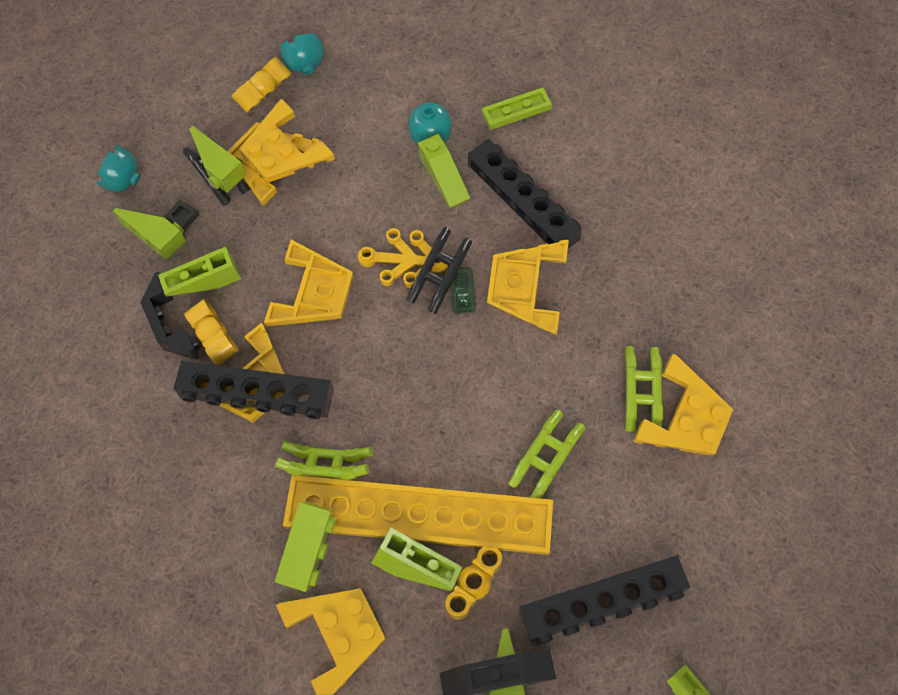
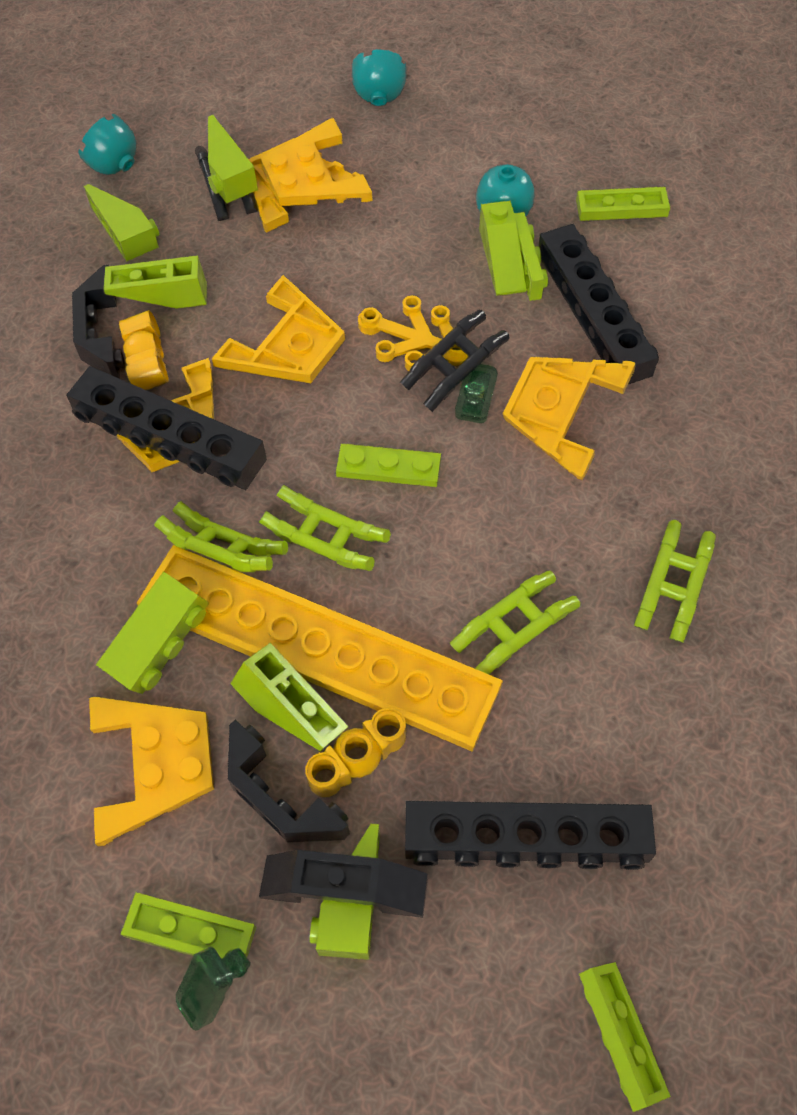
camera: 15 degrees right, 5 degrees down
(182, 214) = (165, 215): pearl dark grey plate -> none
(261, 84) = (316, 99): yellow piece -> none
(382, 418) = (315, 514): none -> lime piece
(420, 365) = (388, 465): none -> lime plate
(466, 639) = (315, 824): none -> black slope
(474, 187) = (535, 277): none -> lime plate
(698, 417) = (741, 639): yellow wing -> none

